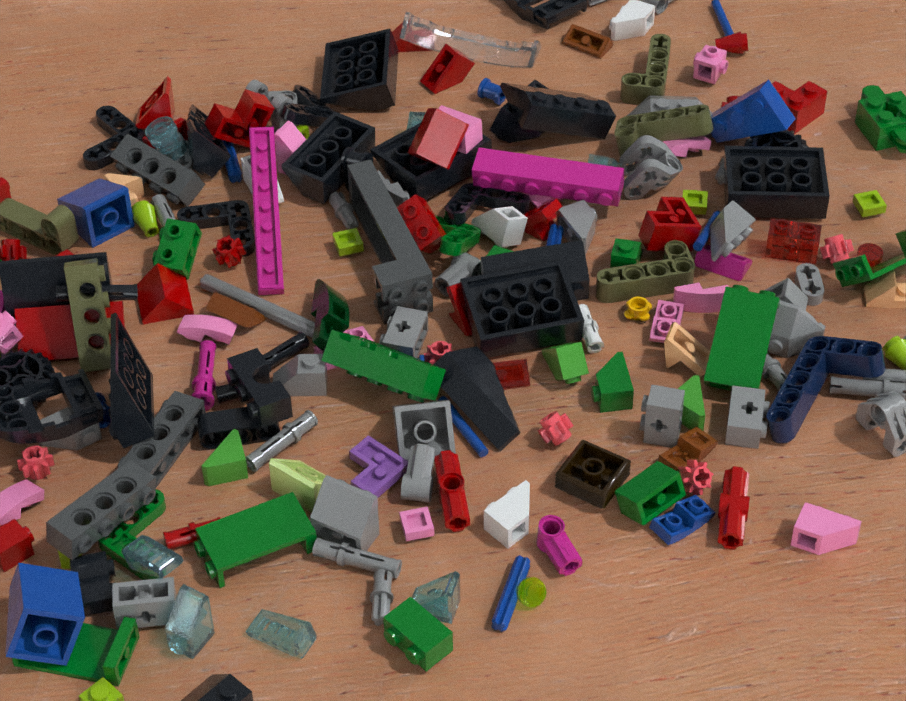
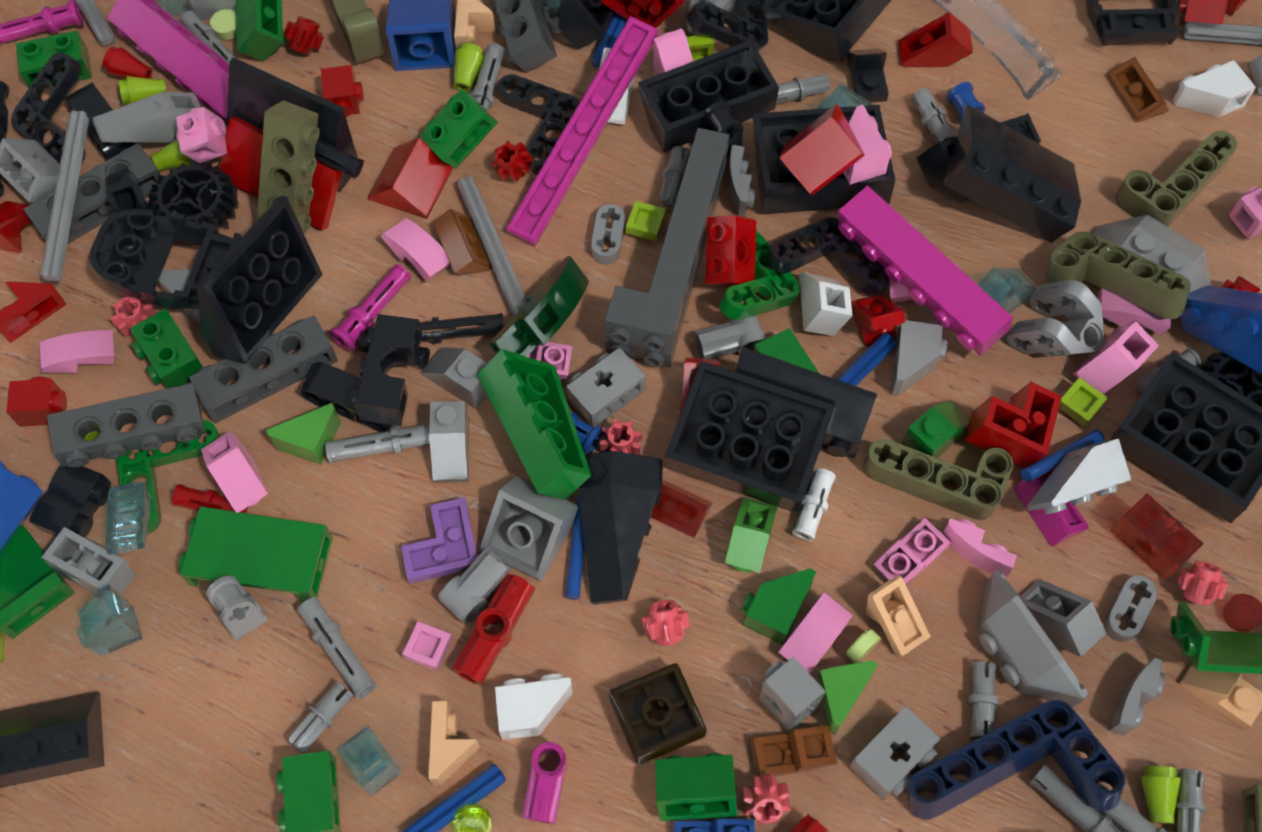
camera: 35 degrees right, 20 degrees up
(79, 466) = (166, 349): none -> green brick
(201, 498) = (234, 471): none -> bright pink slope
(273, 567) = (236, 607): none -> light grey piece
(296, 644) = (205, 709): clear light blue slope -> none
(298, 478) = (360, 513): yellowish green slope -> none
(324, 263) = (601, 233): none -> light grey beam
(331, 413) = (449, 441): none -> light grey slope
(345, 514) = (354, 593): light grey slope -> none
(383, 129) = (799, 88): none -> light grey axle
(414, 100) = (868, 74): none -> black slope
(477, 565) = (446, 753): none -> light nougat slope
(479, 108) = (932, 116): none -> light grey pin
(638, 309) = (894, 504): yellow plate -> none
(643, 377) = (816, 632): none -> bright pink slope
(680, 375) = (863, 646): none -> yellowish green tile
(696, 166) = (1118, 358): none -> bright pink slope
(741, 338) = (961, 654): green panel -> none
(849, 323) = (1141, 689): none -> light grey slope

